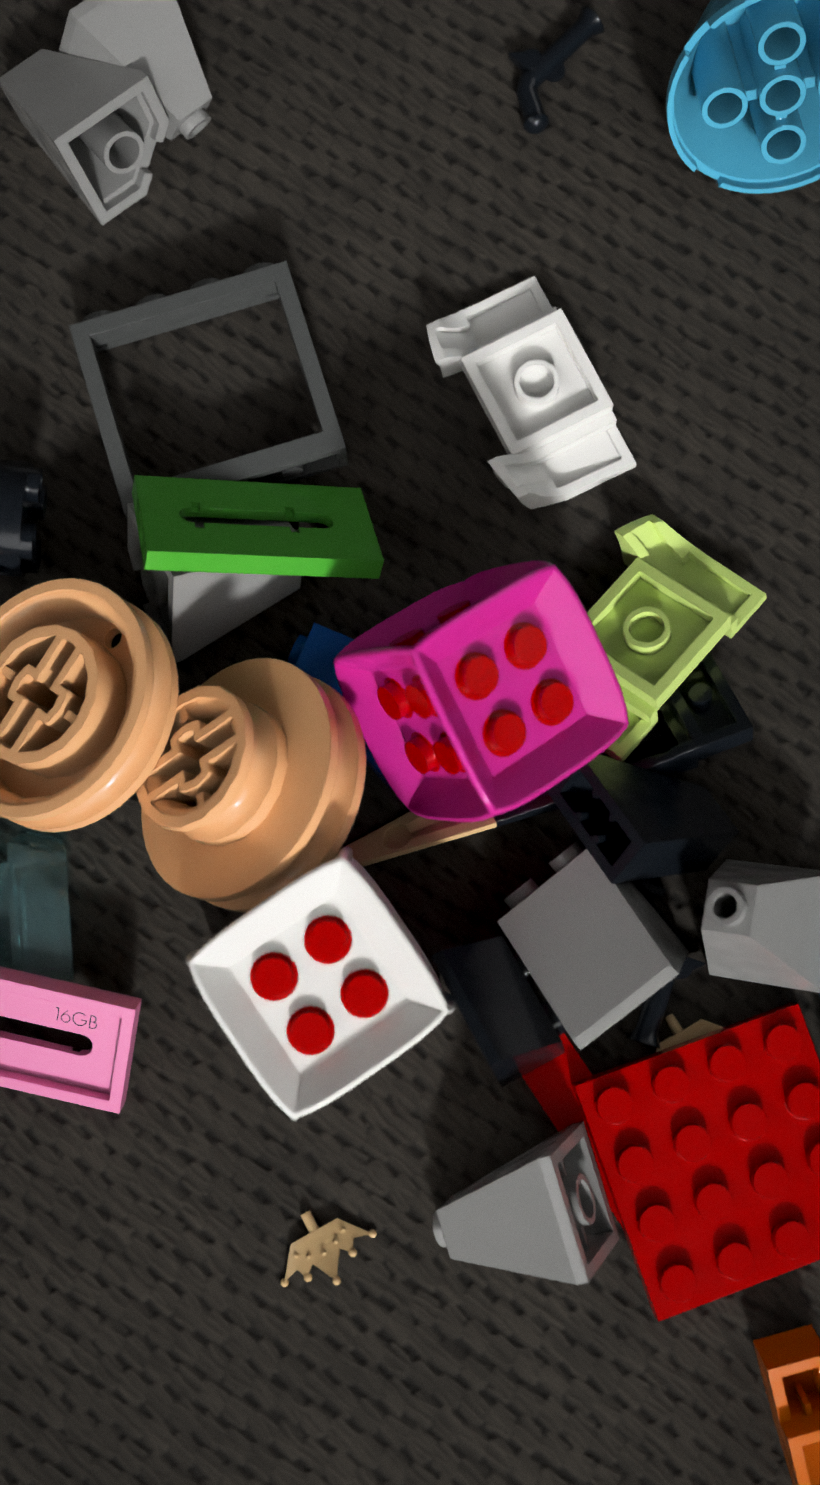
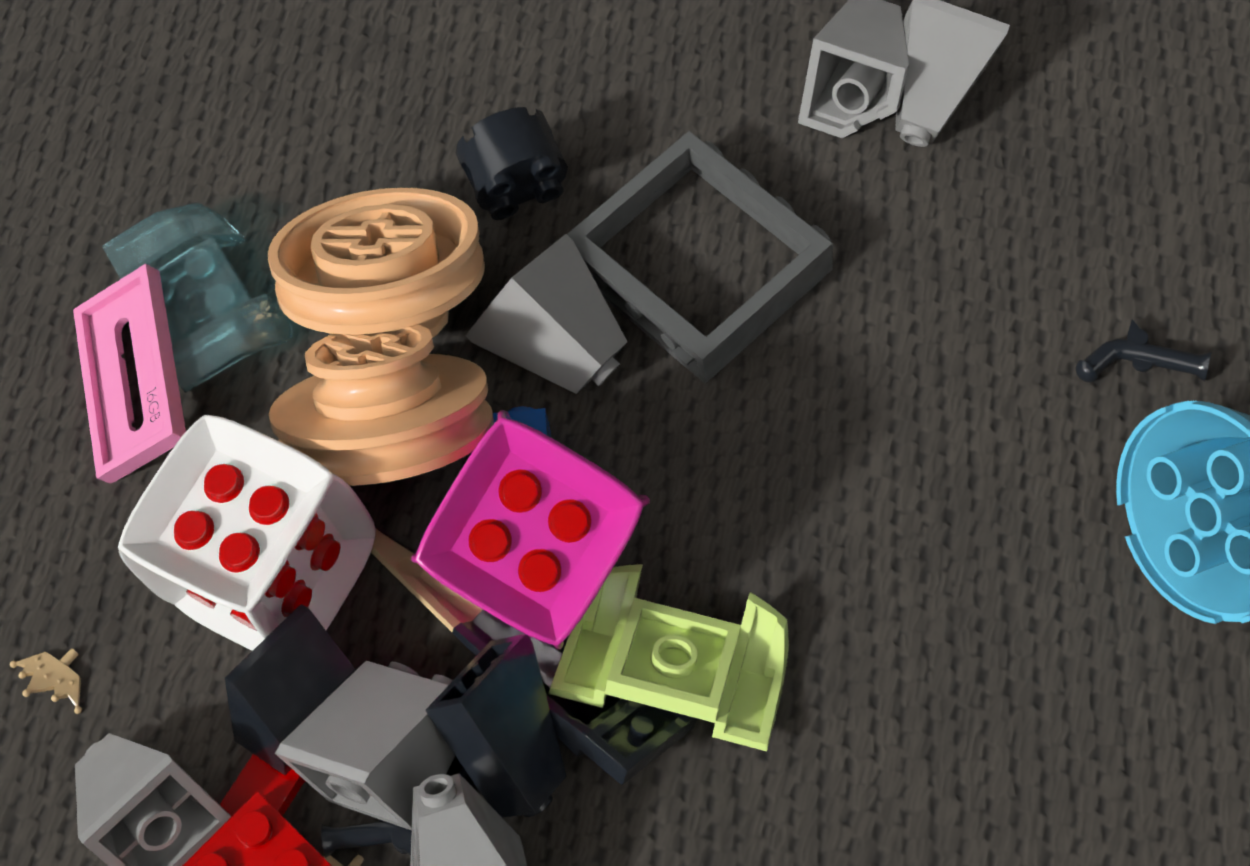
camera: 70 degrees right, 20 degrees down
(174, 544) = (610, 394): bright green piece -> none
(535, 394) = (838, 482): white piece -> none

